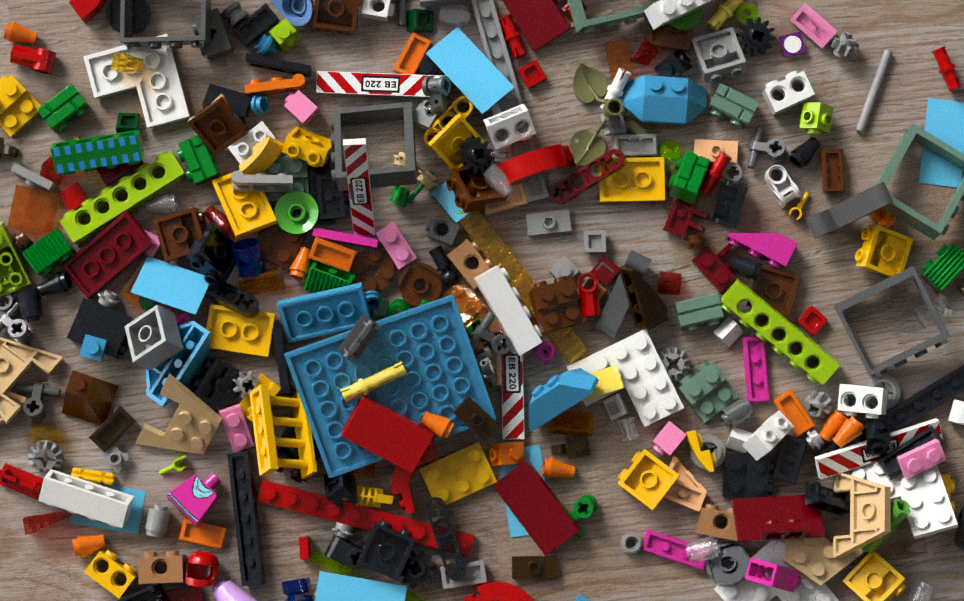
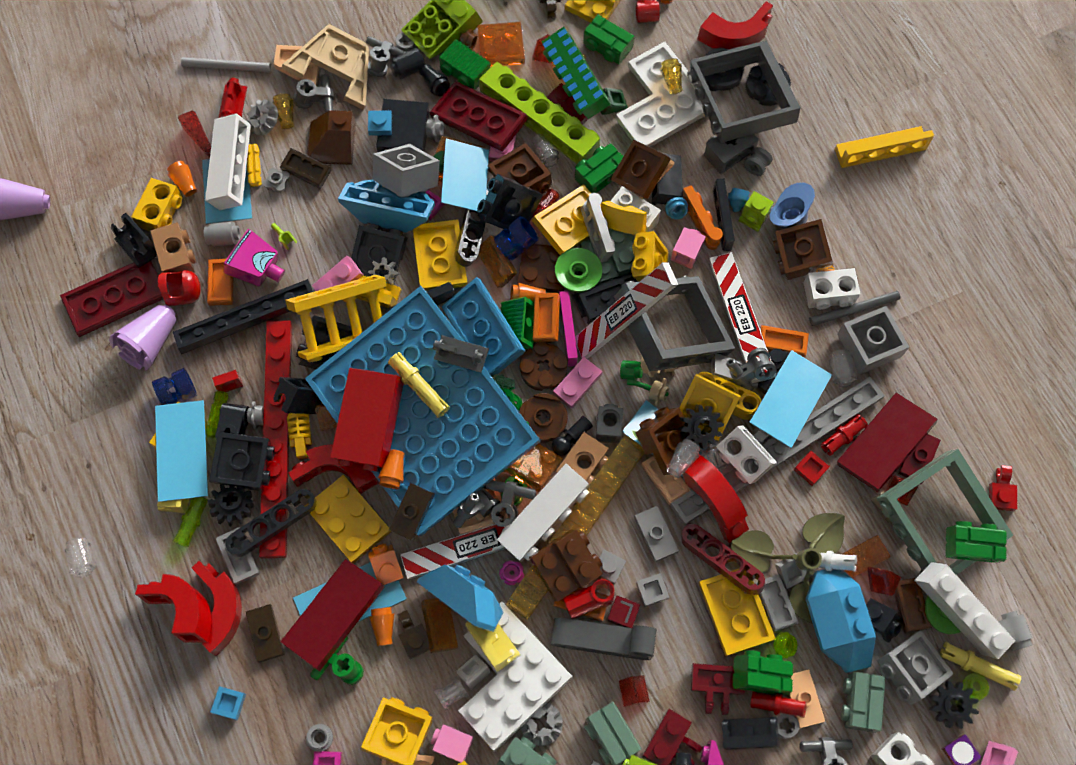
camera: 70 degrees right, 15 degrees down
(32, 178) = (531, 32): light grey plate -> none
(73, 197) = (528, 72): red tile -> none
(190, 425) = (329, 233): tan wing -> none
(256, 25) = (752, 180): black plate -> none
(376, 299) = (517, 372): dark azure plate -> none
(419, 21) = (822, 338): dark green slope -> none
(645, 304) = (599, 666): dark brown slope -> none
(695, 241) = (692, 706): reddish brown plate -> none

